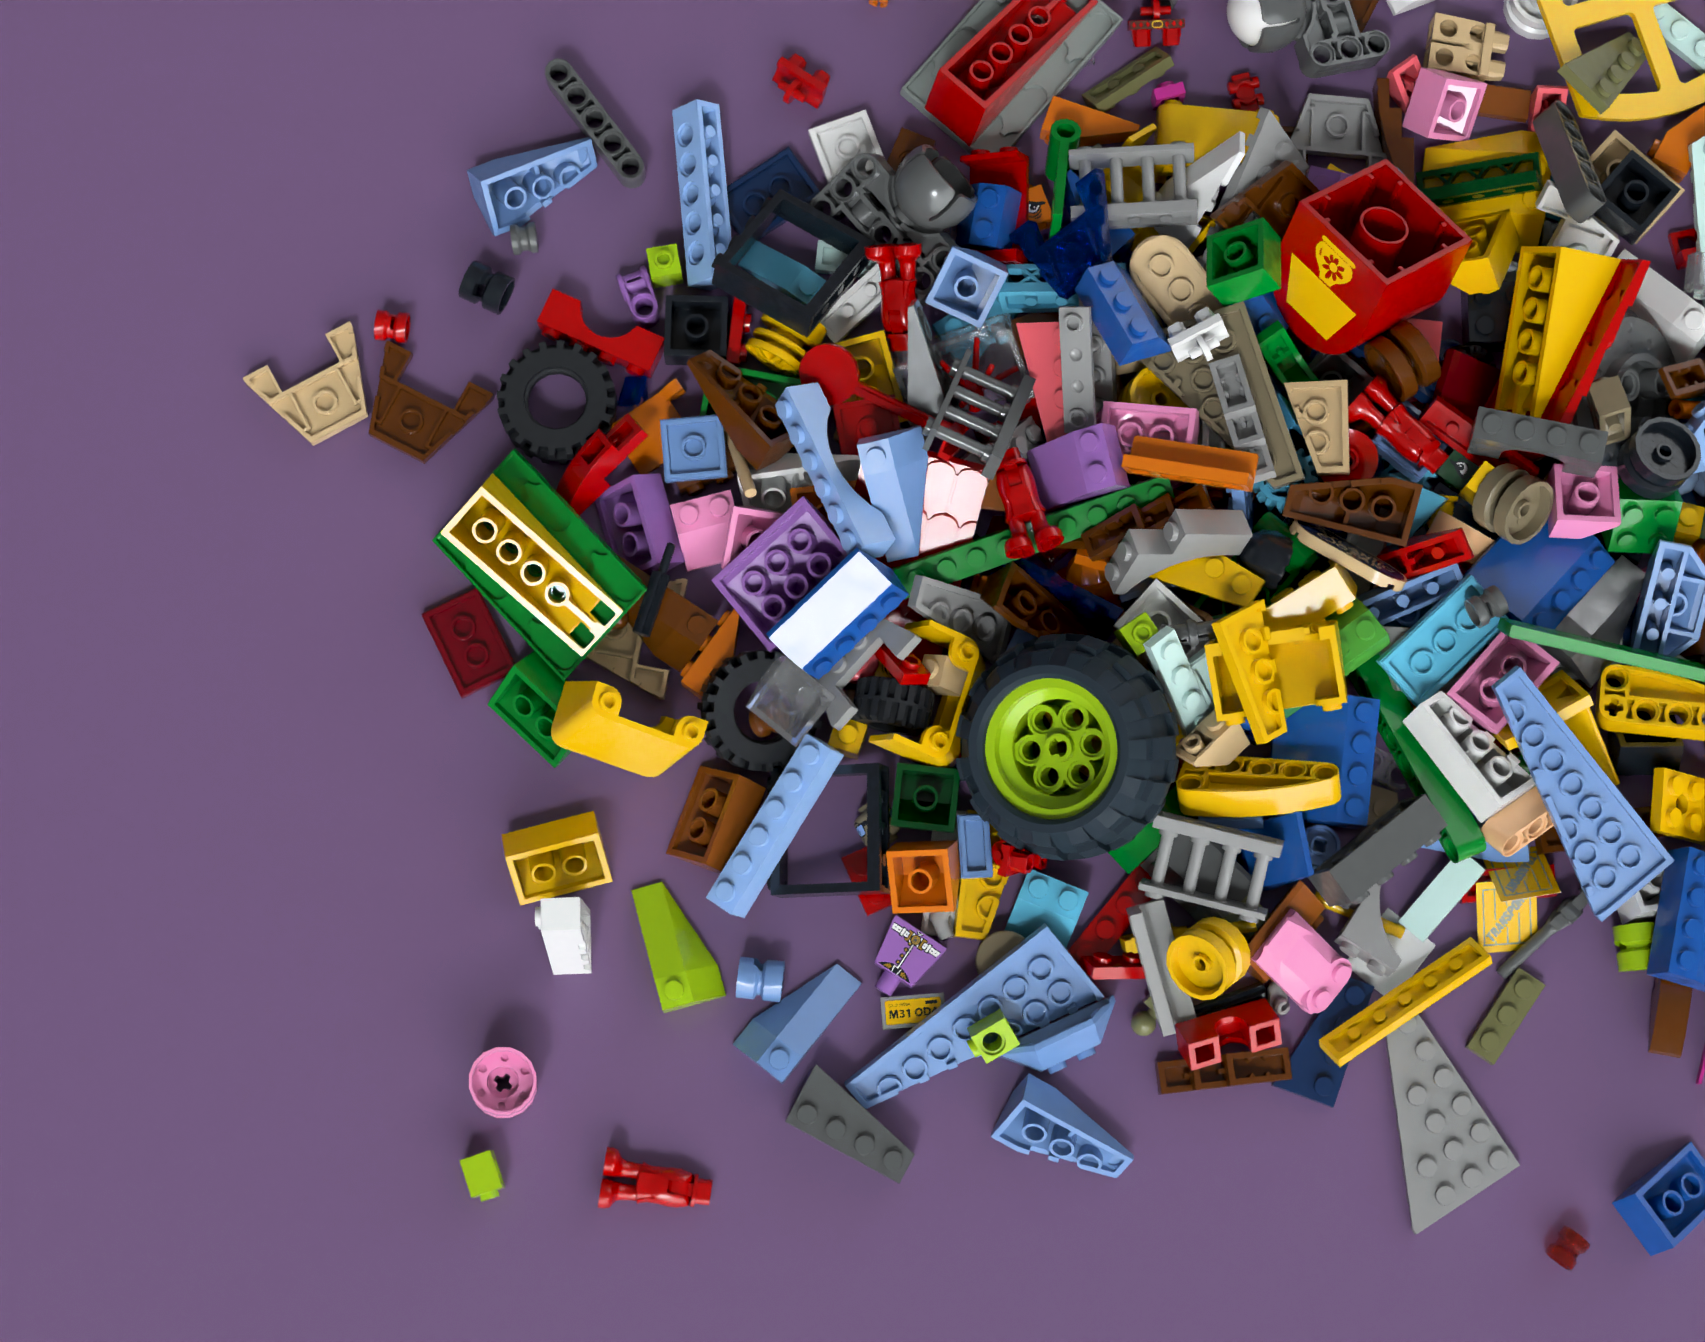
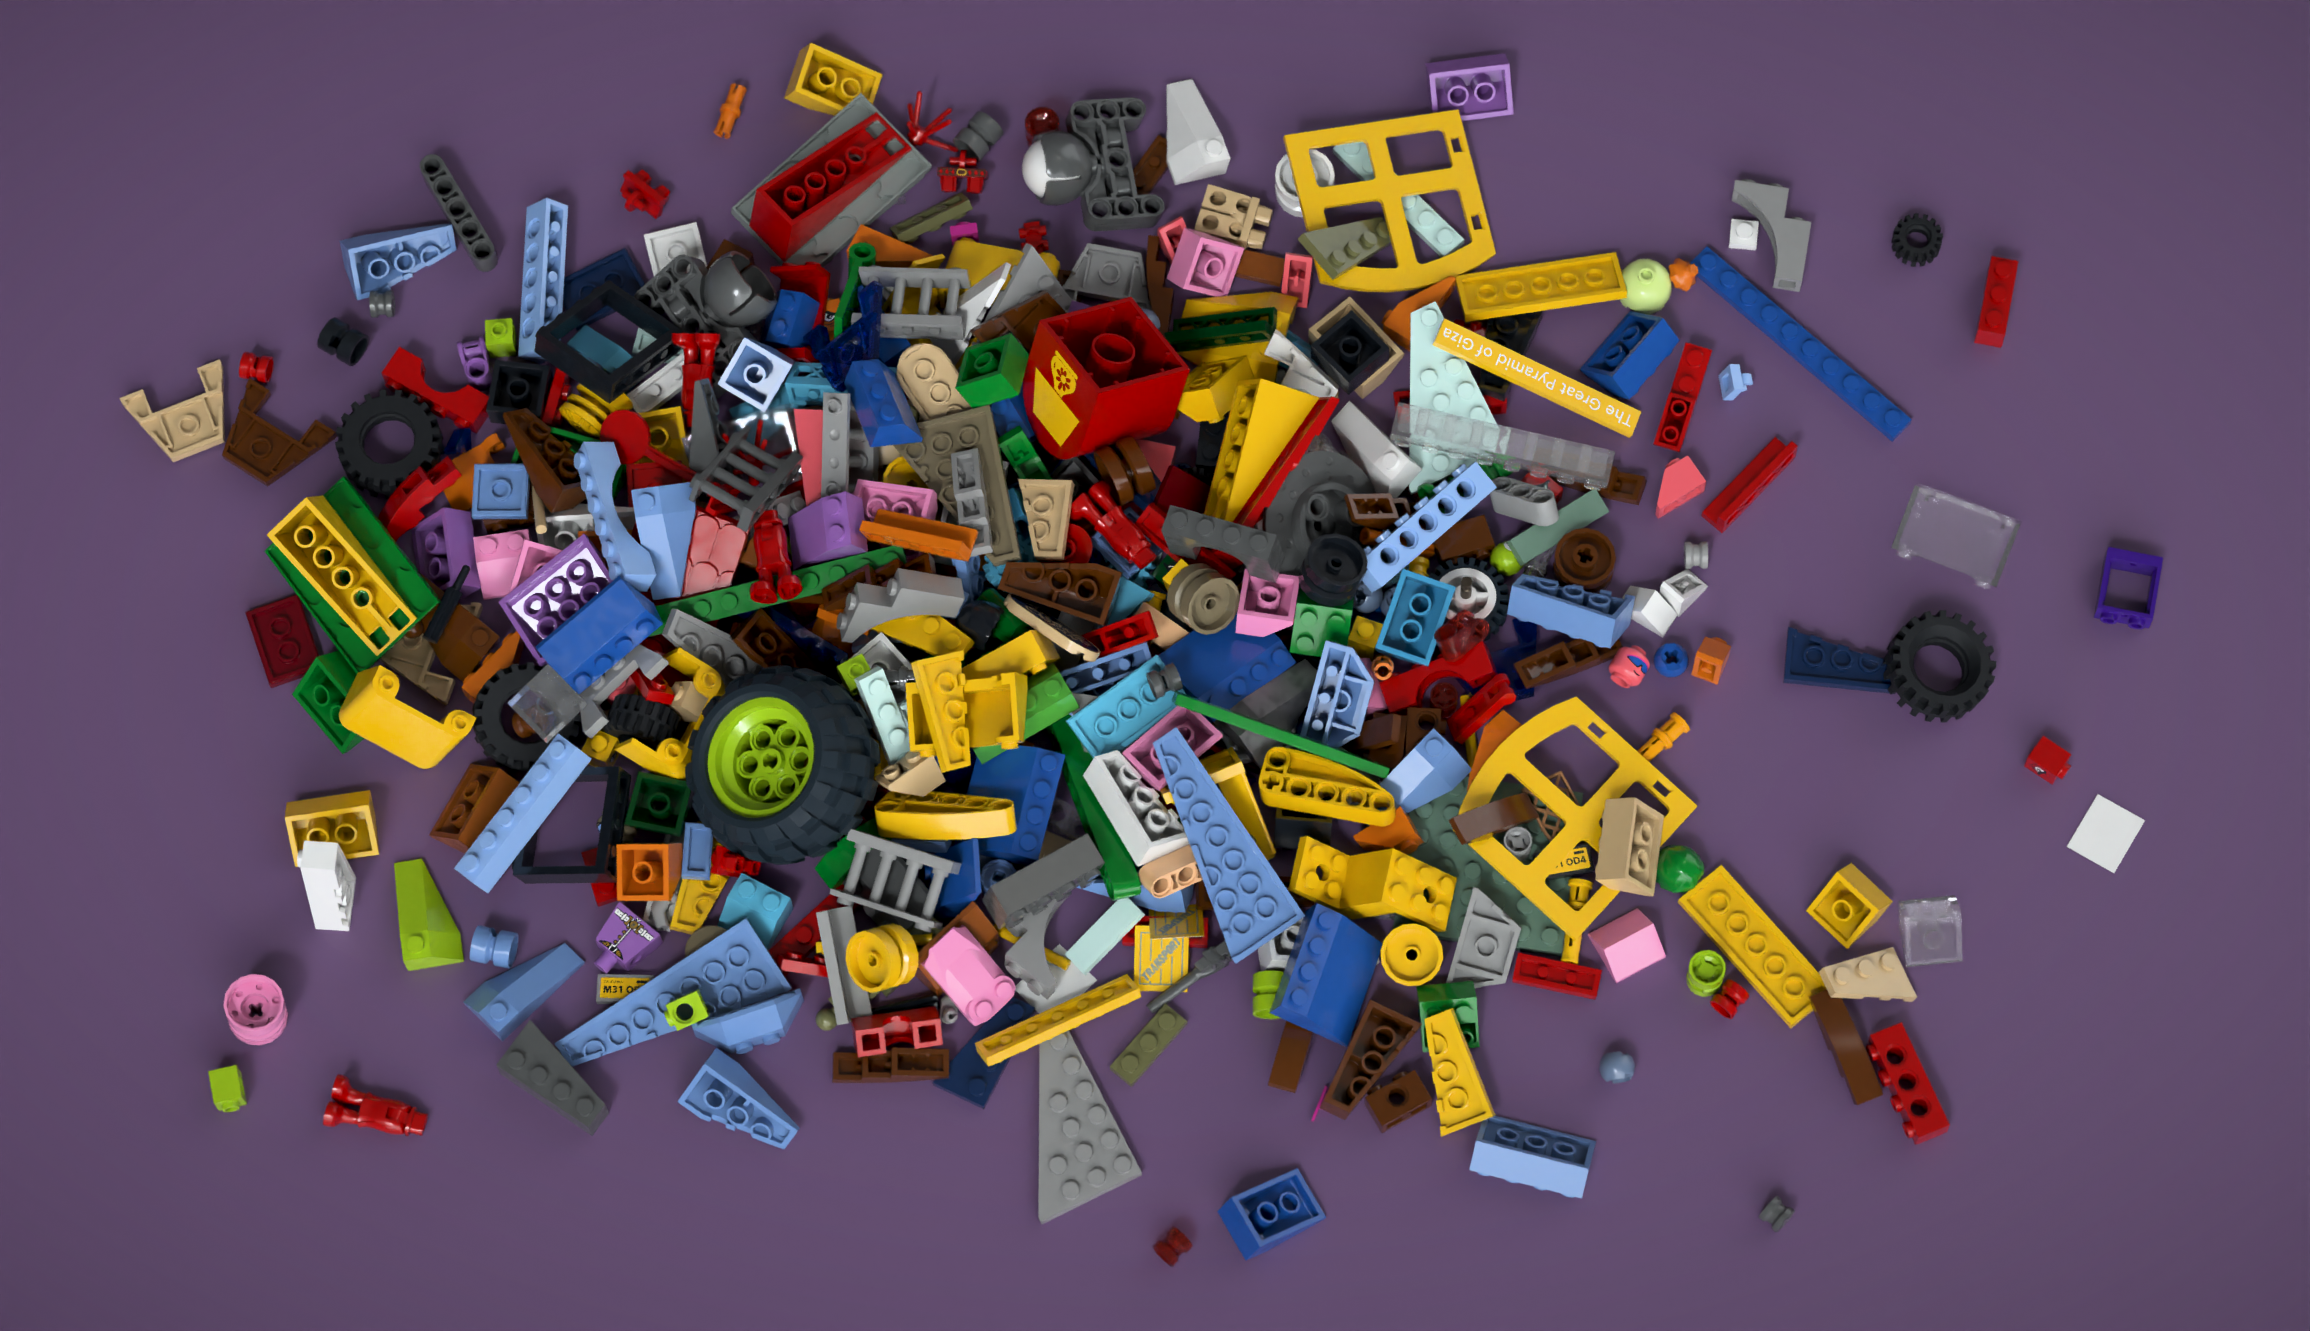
camera: 10 degrees right, 10 degrees down
(1198, 338) = (944, 430): white hips -> none
(1569, 161) = (1298, 316): dark grey beam -> none
(1610, 408) = (1292, 524): dark tan slope -> none

